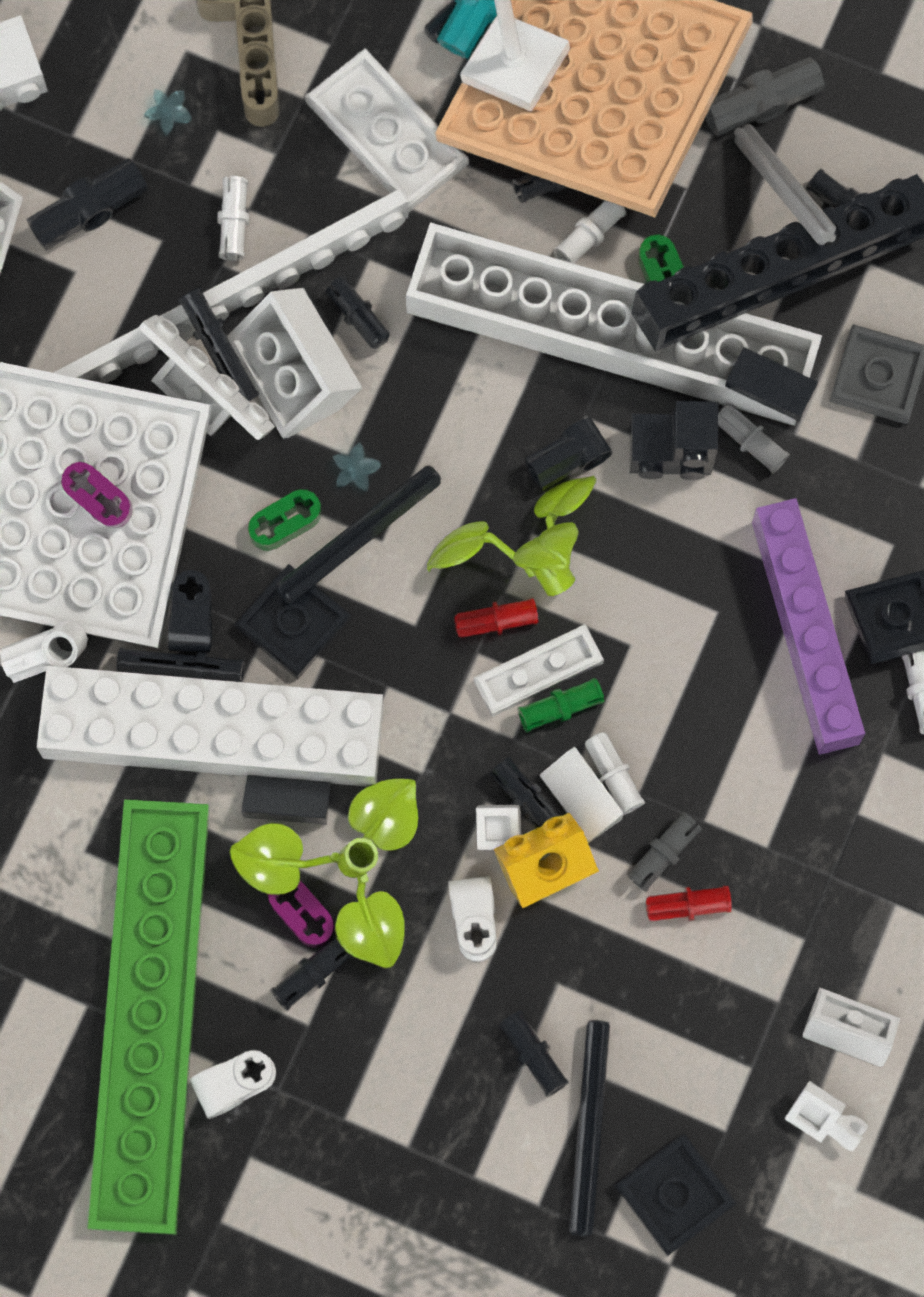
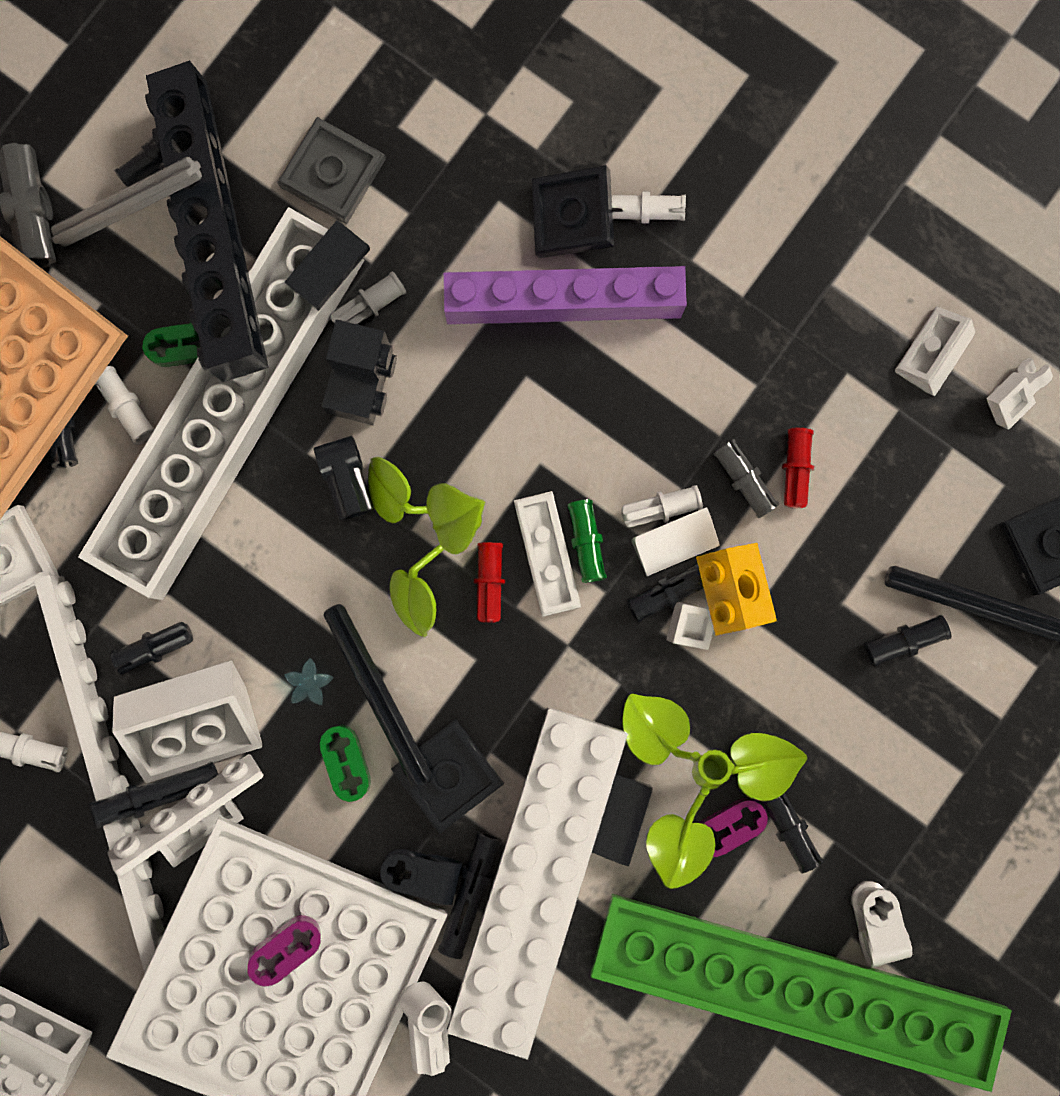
camera: 80 degrees left, 10 degrees up
(473, 911) = (765, 667): white piece -> none

